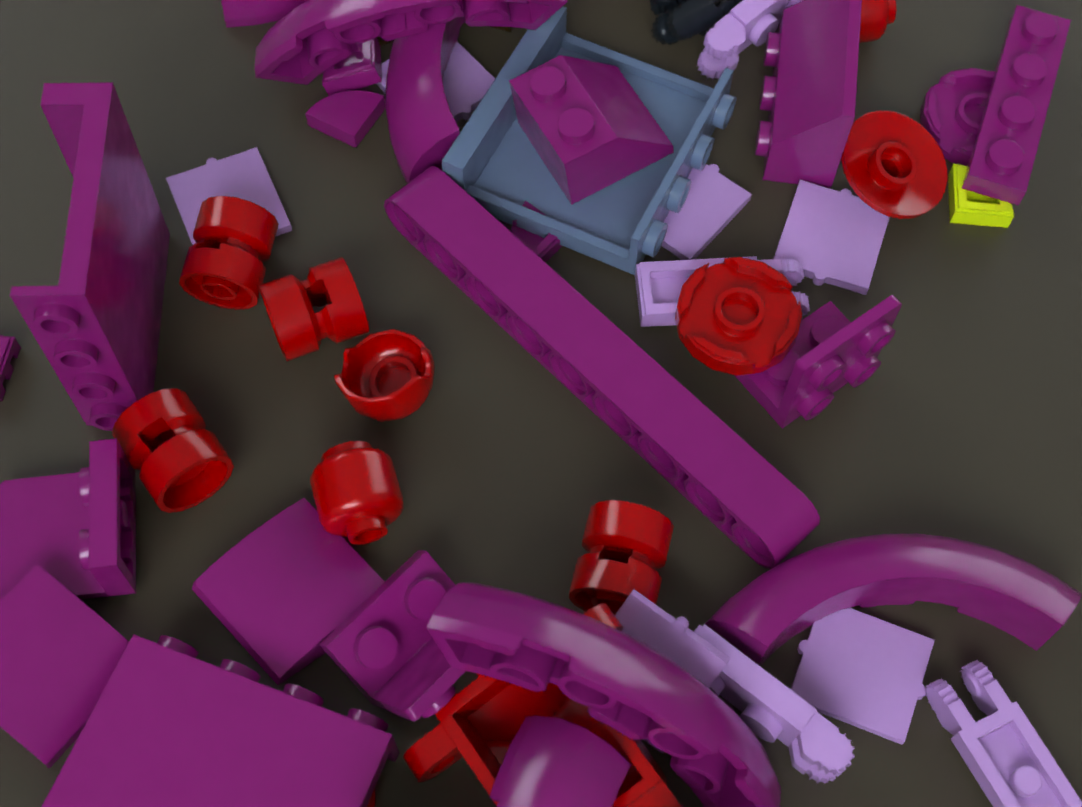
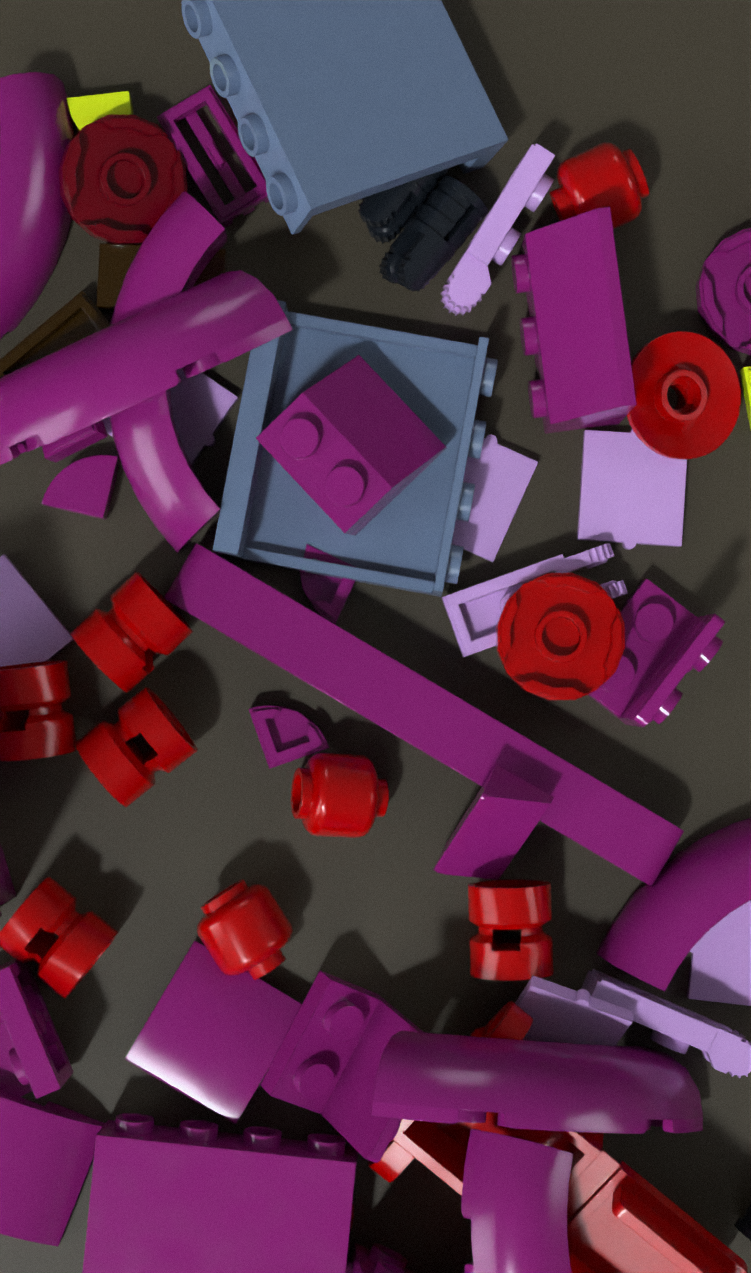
camera: 10 degrees left, 25 degrees up
(346, 218) = (131, 632): none -> red wheel
(387, 375) = (231, 797): red hair -> none
(457, 349) = (286, 734): none -> magenta tile
(488, 401) = (338, 795): none -> red head
(630, 452) = (493, 827): none -> magenta slope

